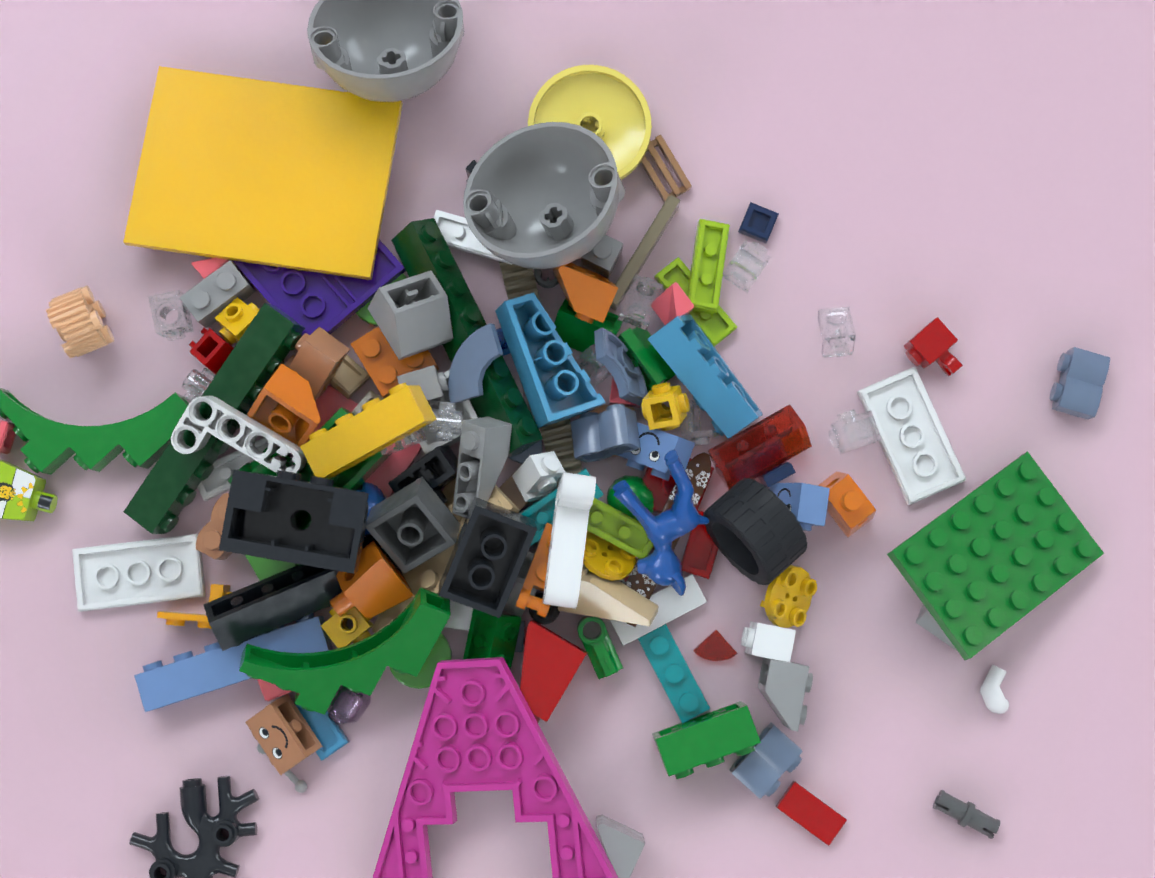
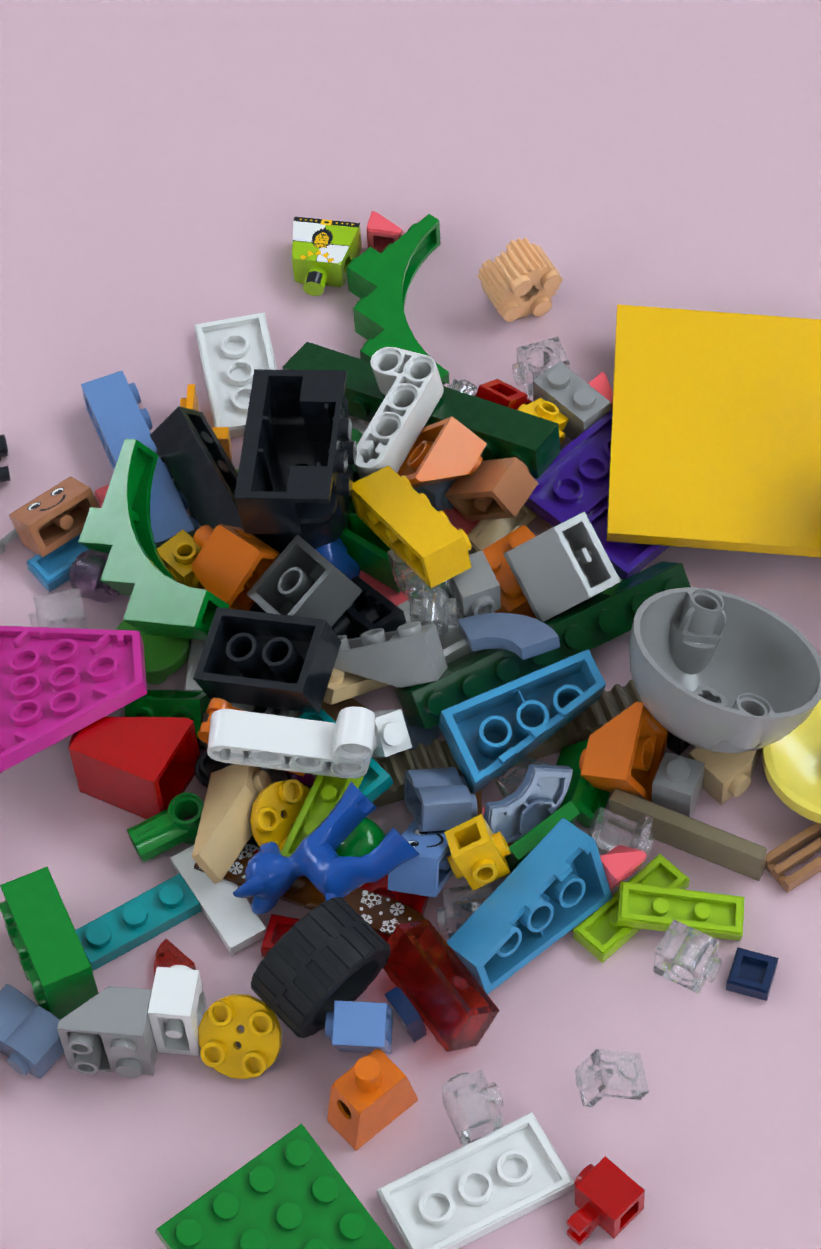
camera: 90 degrees right, 30 degrees down
(388, 732) = (59, 610): none -> clear brick

